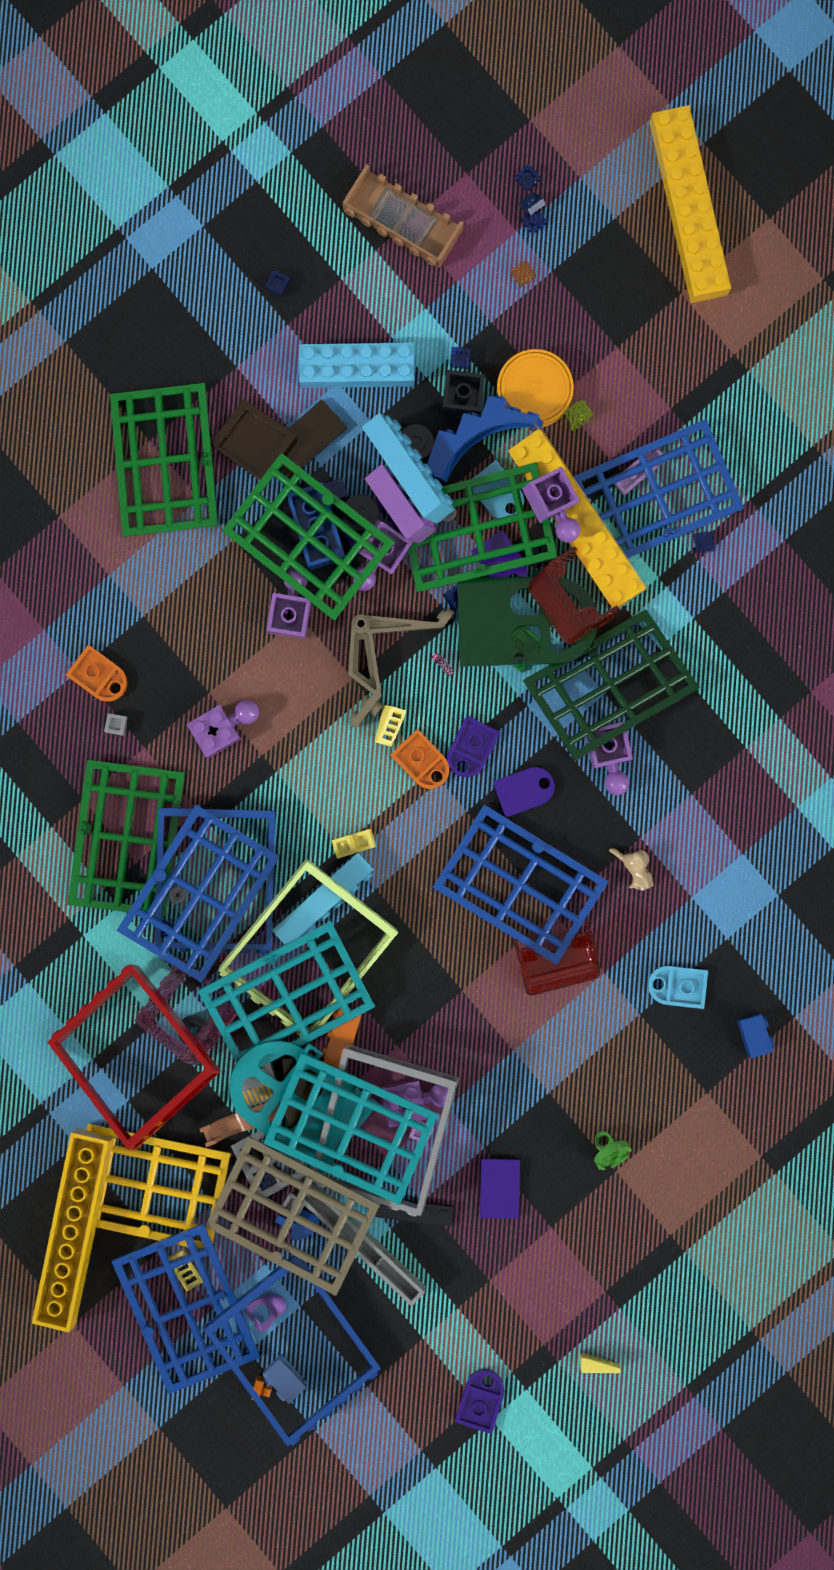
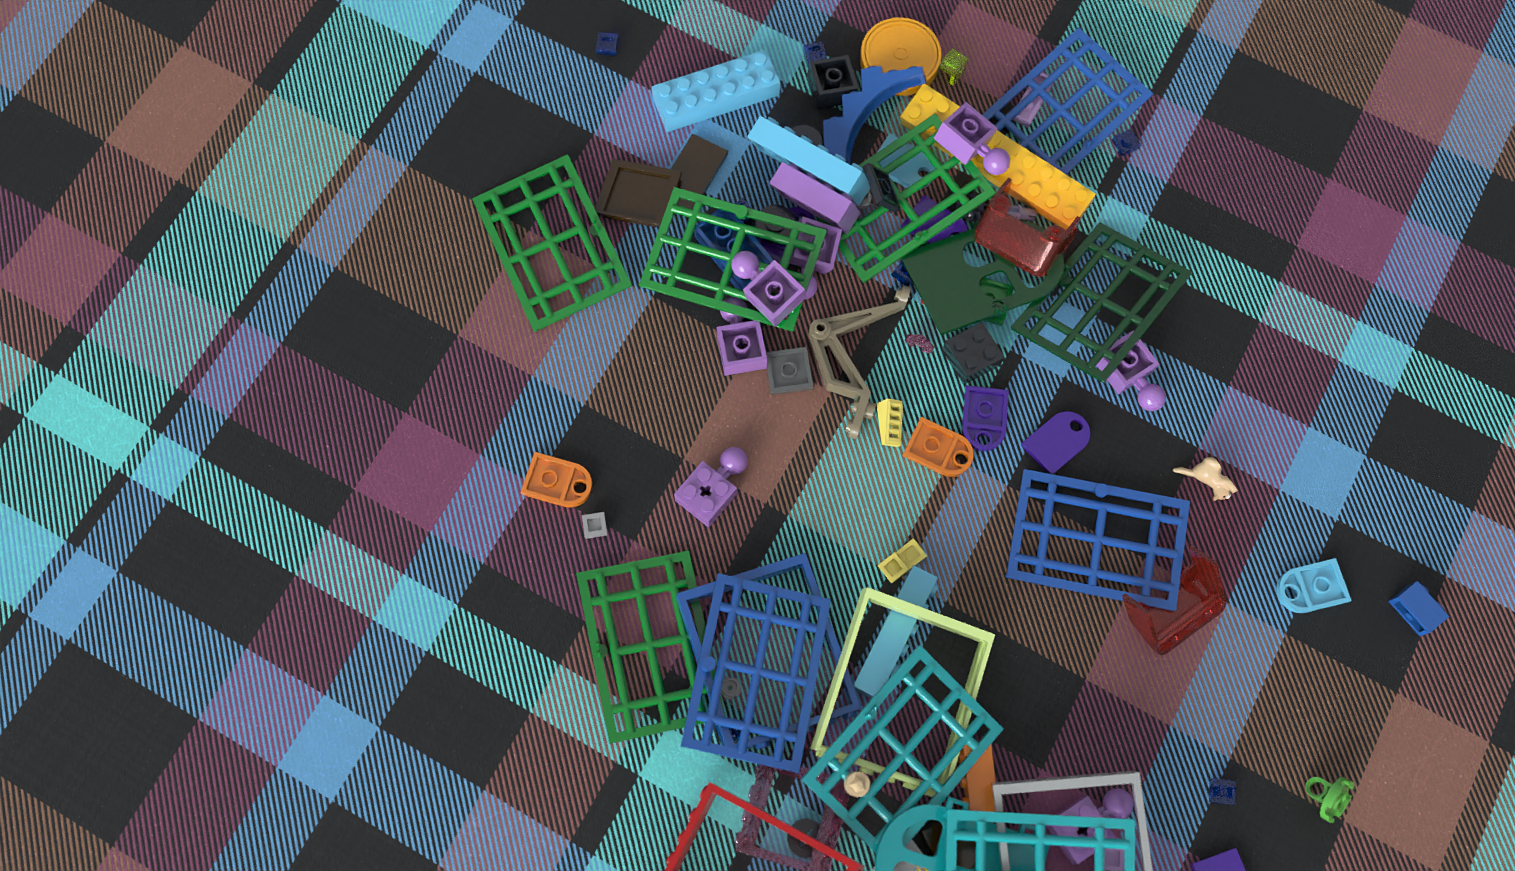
camera: 25 degrees left, 15 degrees down
(238, 1009) = (856, 784): none -> tan tile
(315, 580) = (771, 279): none -> medium lavender brick
(323, 648) = (789, 371): none -> dark grey tile
(459, 518) = (881, 188): none -> black tile
(483, 690) = (973, 353): none -> black brick
(530, 1115) = (1222, 791): none -> clear blue tile
(578, 577) = (1022, 213): none -> sand blue axle

